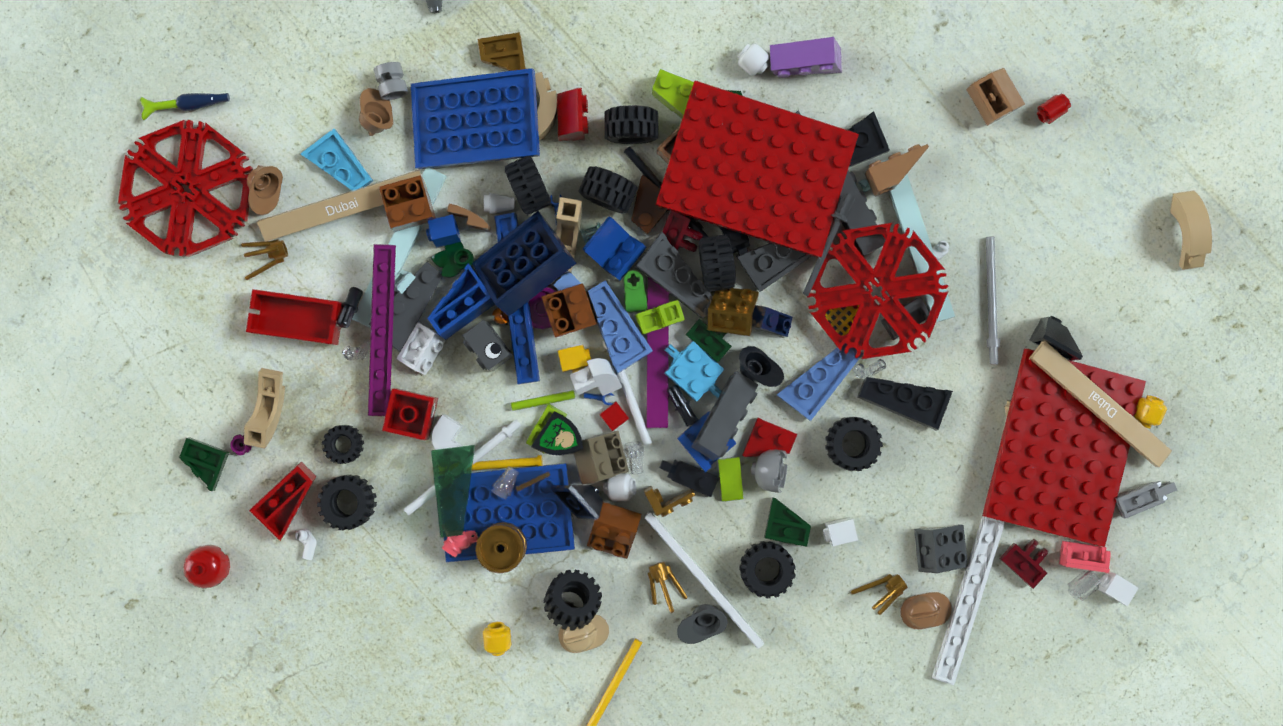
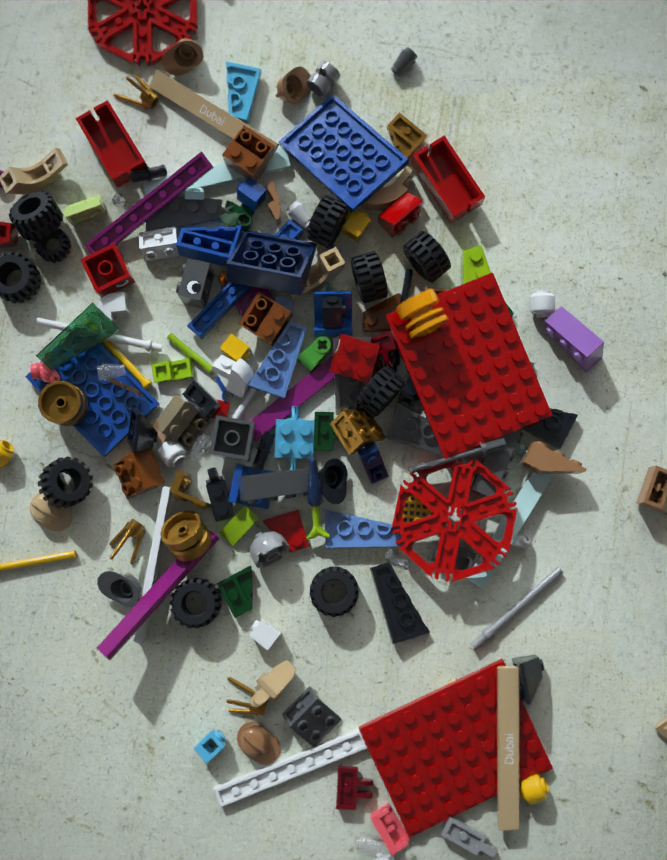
camera: 55 degrees right, 5 degrees down
(307, 438) = (36, 215): none -> black tyre
(334, 390) = (84, 209): none -> yellowish green bracket
(549, 161) = (356, 225): none -> yellow brick
(558, 437) = (171, 381): shield -> none
(575, 48) = (447, 179): none -> red piece
(595, 423) = (201, 399): none -> black plate
(613, 246) = (333, 311): none -> black brick
(653, 424) = (233, 438): none -> dark grey brick
(660, 317) = (312, 384): lime slope -> none
(671, 262) = (354, 358): none -> red brick
(685, 172) = (421, 313): none -> light orange wheel
(704, 532) = (186, 535): none -> pearl gold wheel
(735, 595) = (148, 604): none -> magenta tile
(764, 396) = (315, 499): none -> dark blue piece
(889, 558) = (271, 685): none -> tan hinge
(900, 658) = (208, 751): none -> medium azure brick

